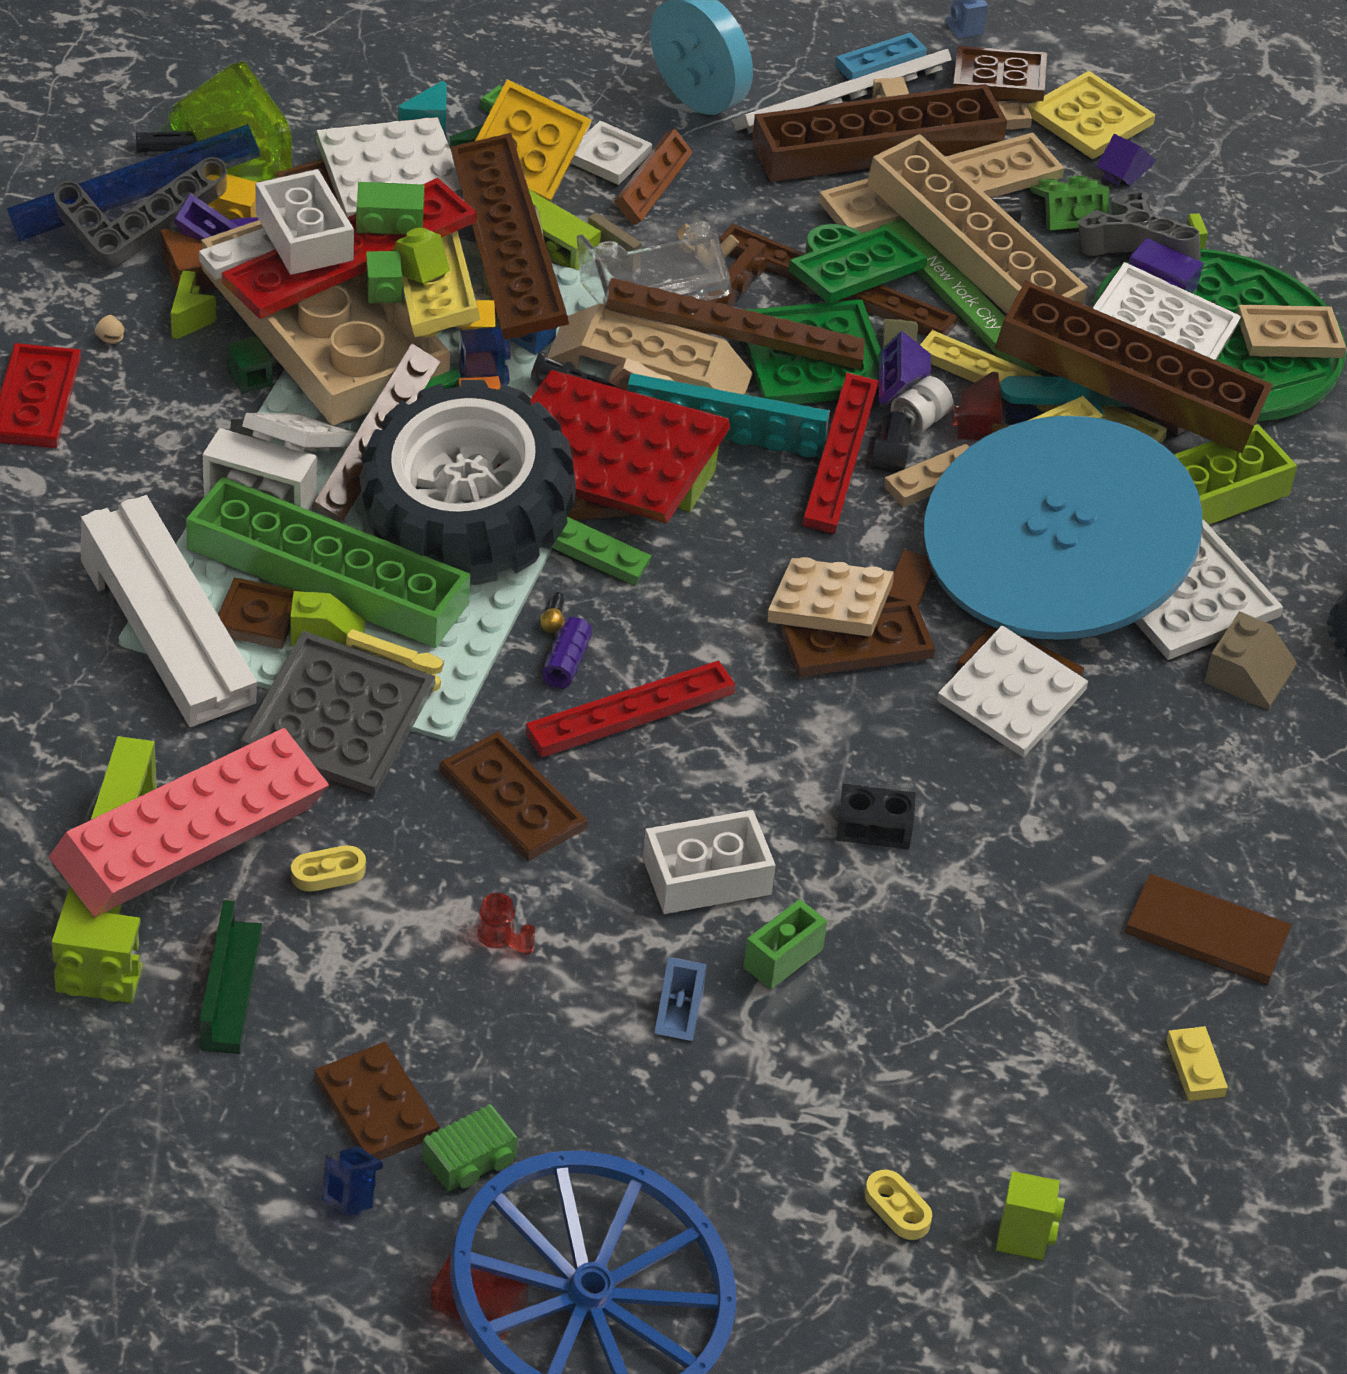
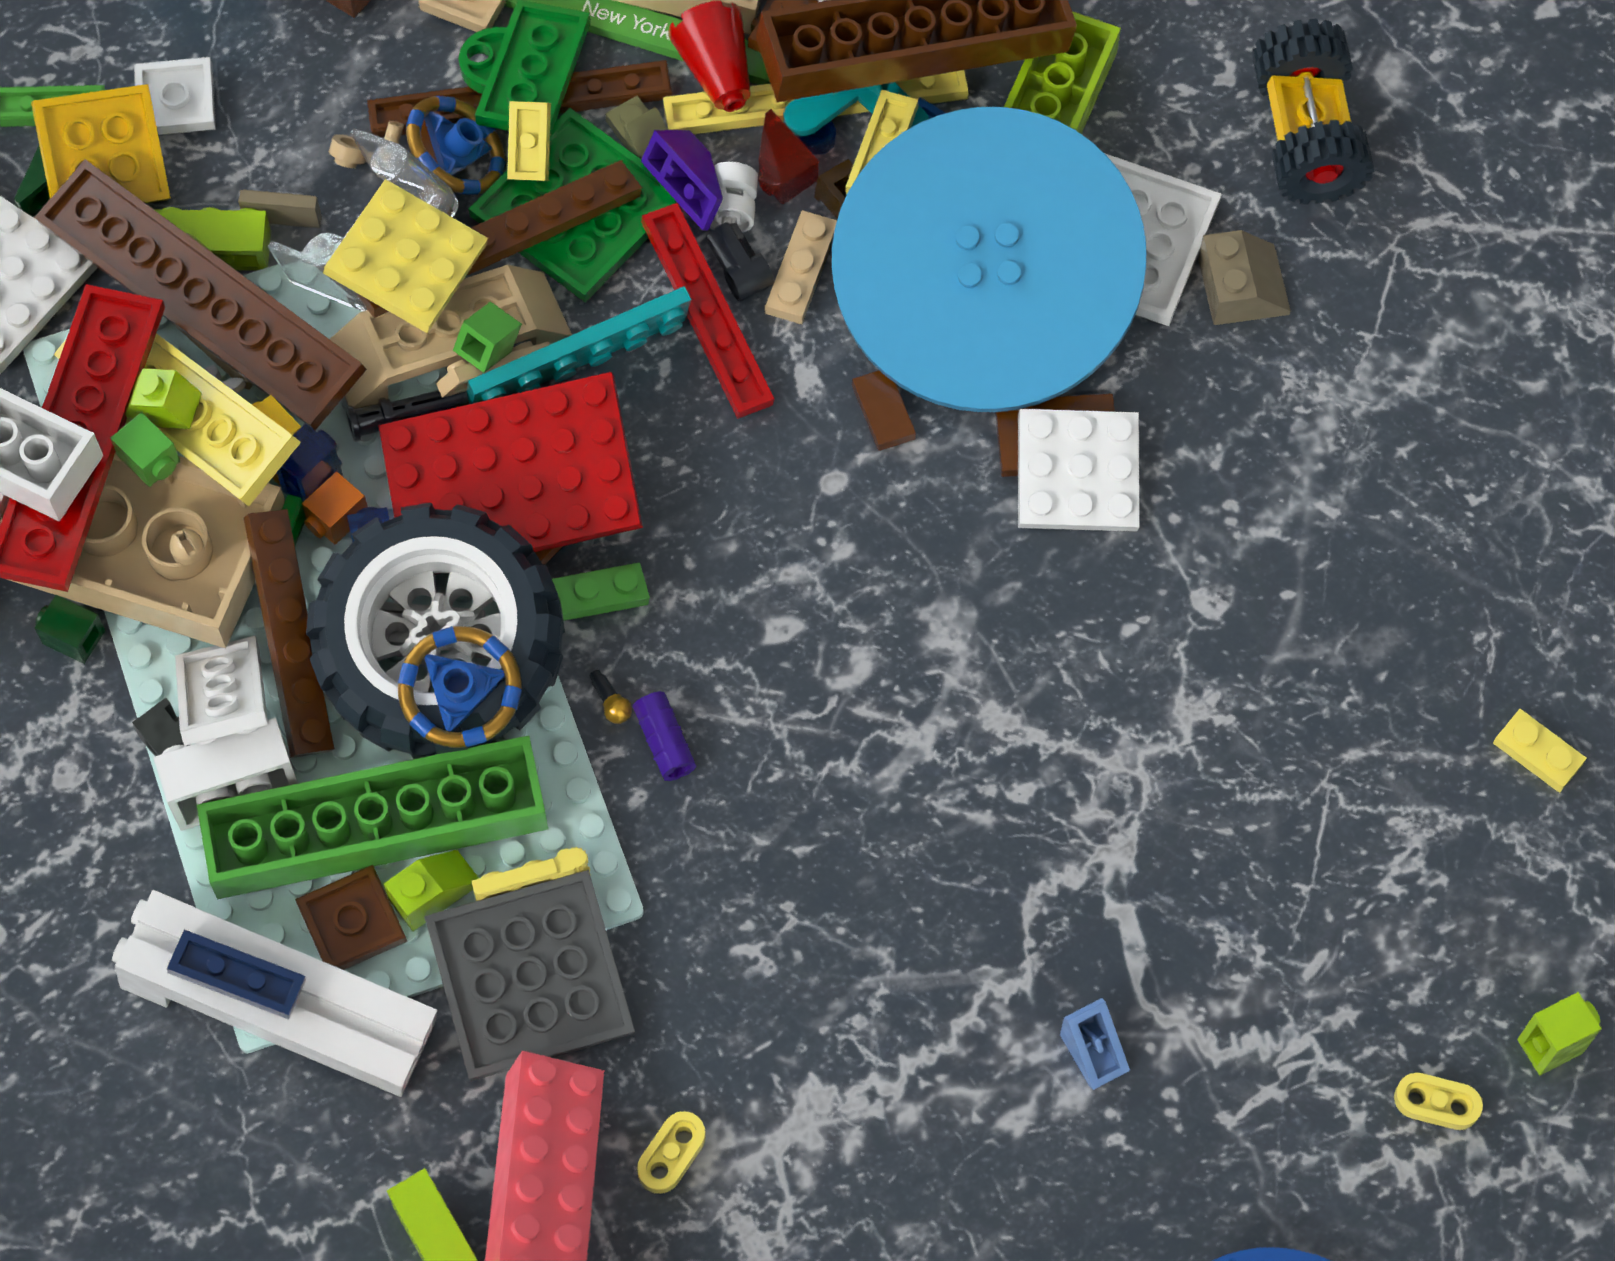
camera: 35 degrees left, 20 degrees up
(149, 567) = (236, 974): none -> dark blue plate
(356, 348) = (178, 550): none -> tan hinge
(389, 207) = (86, 366): bright green brick -> none
(444, 500) = (459, 687): none -> blue piece
(497, 925) = (871, 1089): clear red piece -> none
(513, 796) = (753, 933): reddish brown tile -> none
(629, 708) = (773, 755): red plate -> none
(653, 176) = (245, 97): dark orange plate -> none
(656, 281) = (405, 256): none -> light yellow plate
(666, 355) = (487, 337): none -> bright green brick
(708, 861) = (994, 876): white brick -> none
(761, 269) = (455, 144): none -> blue piece
(785, 944) = (1132, 912): bright green brick -> none
(810, 290) = (529, 141): none -> light yellow plate
(831, 596) = (842, 489): tan plate -> none
(876, 816) = (1088, 710): black brick -> none
(897, 638) = (897, 514): reddish brown plate -> none
(984, 311) = (715, 52): none -> red cone
(1208, 928) = (1436, 599): reddish brown tile -> none

